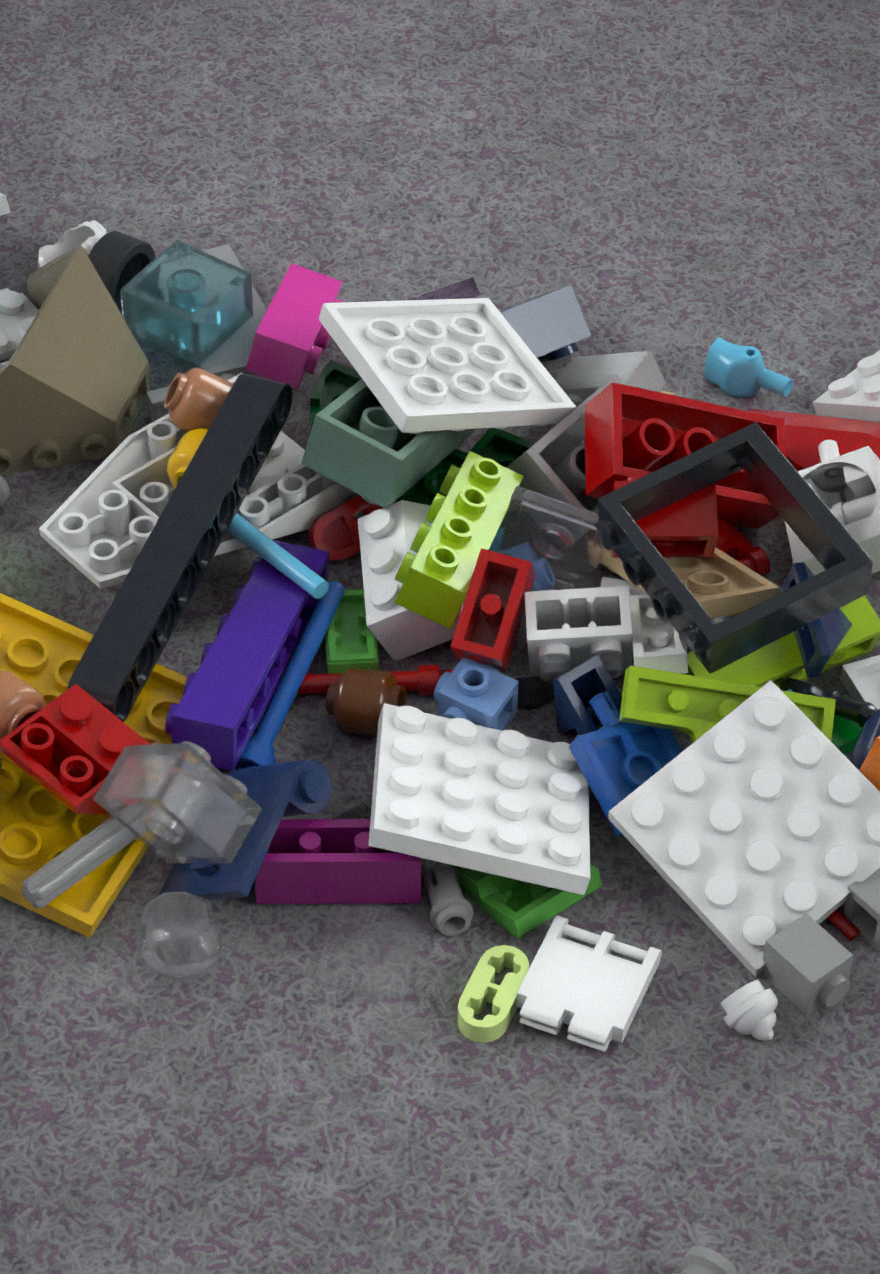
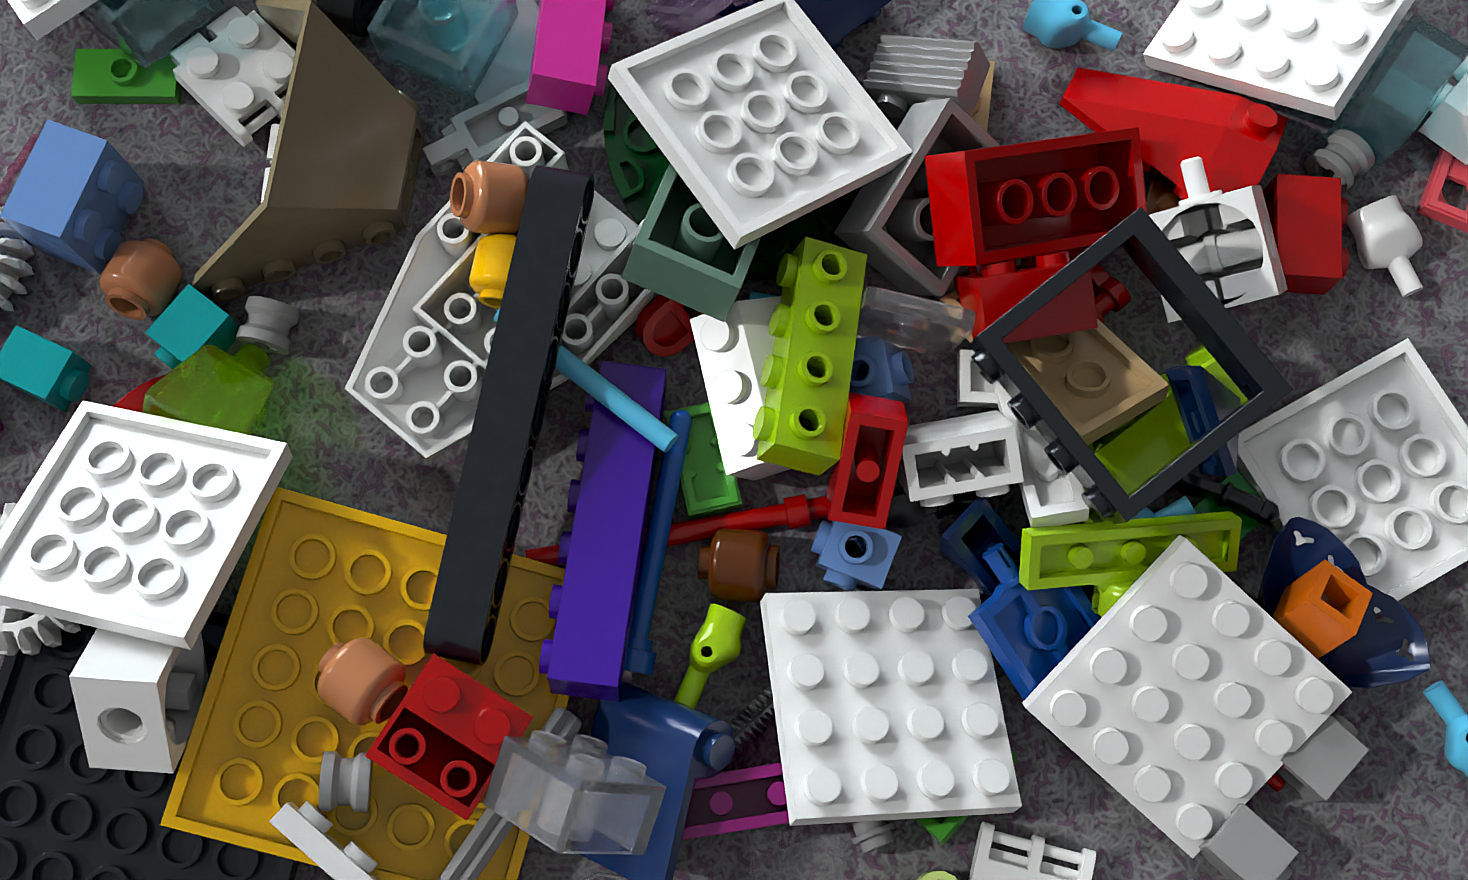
camera: 10 degrees left, 30 degrees up
(338, 749) = (719, 638): none -> lime piece

